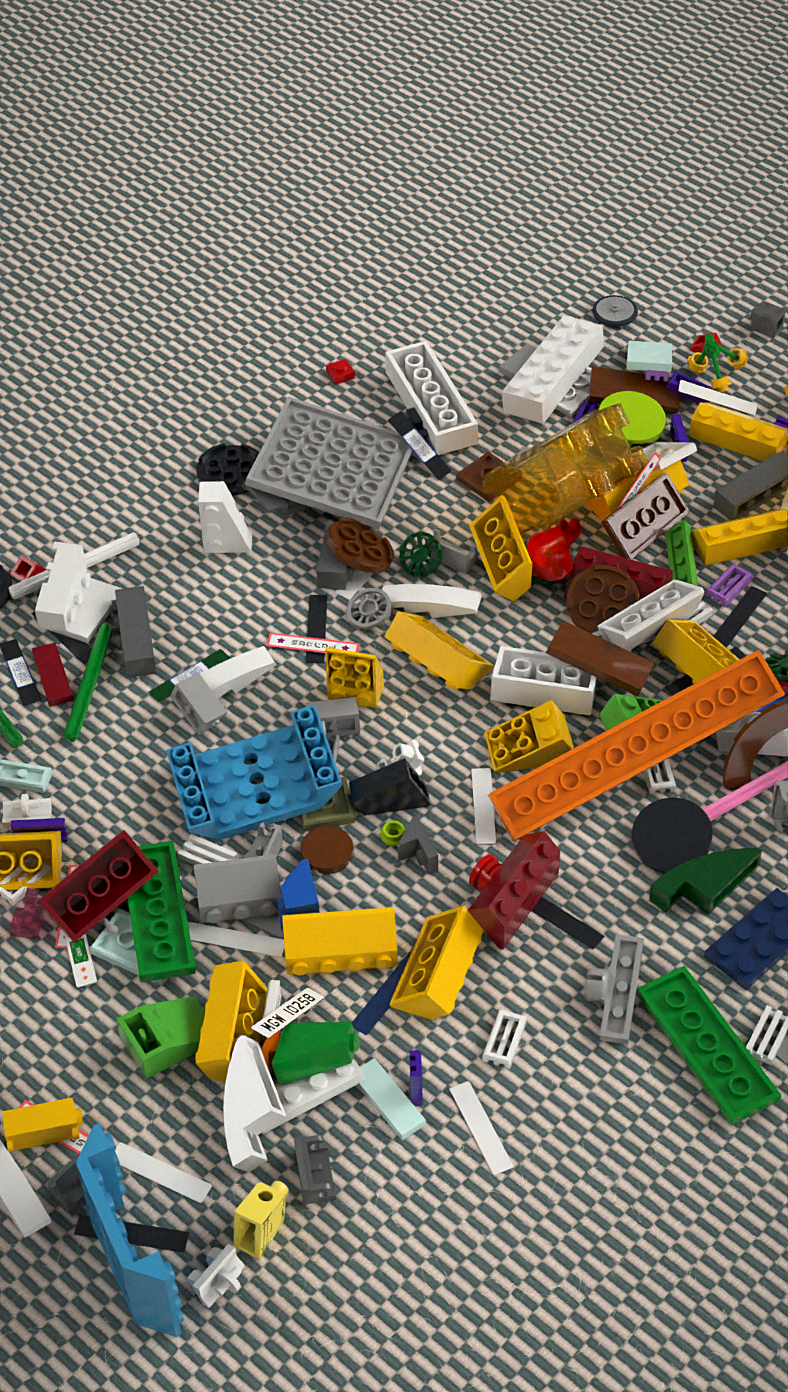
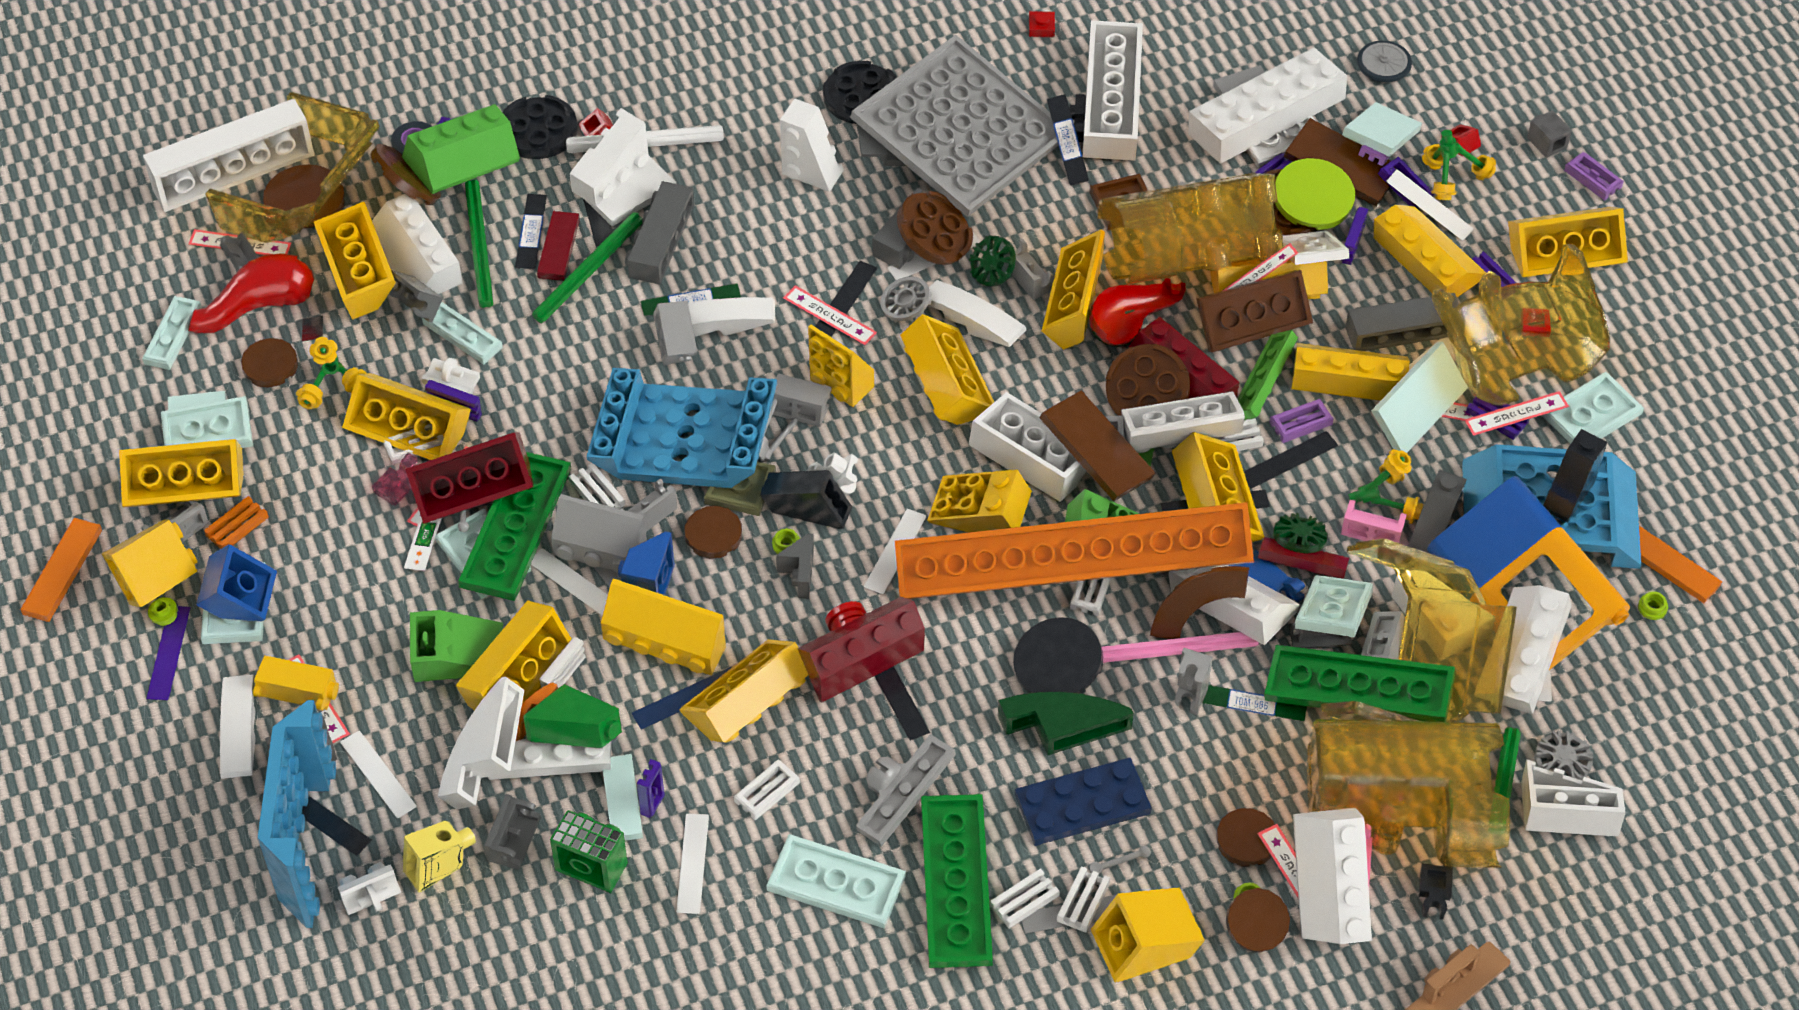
camera: 25 degrees right, 5 degrees up
(287, 1012) = (572, 674): white sticker -> none
(396, 1153) = (589, 850): none -> green brick
(609, 1088) = (836, 881): none -> light aqua tile

